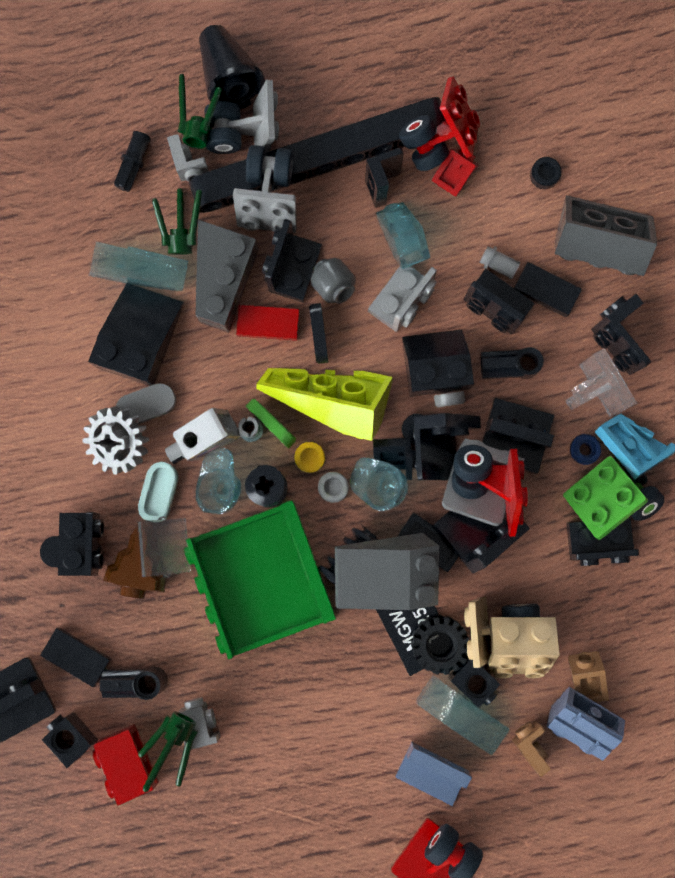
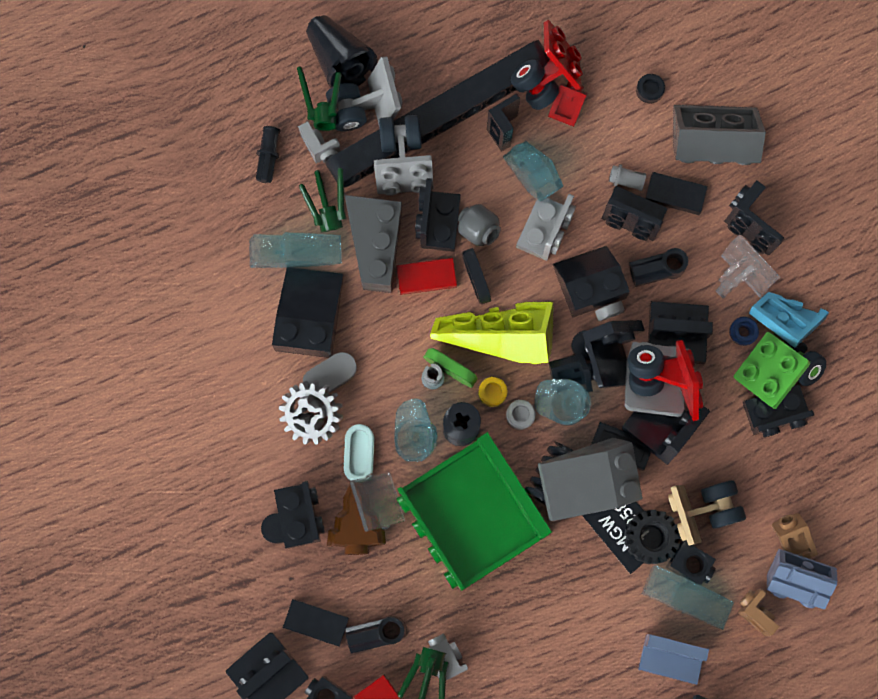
camera: 15 degrees left, 5 degrees down
(212, 429) = (402, 386): light grey torso -> none
(522, 646) = (728, 520): tan bracket -> none

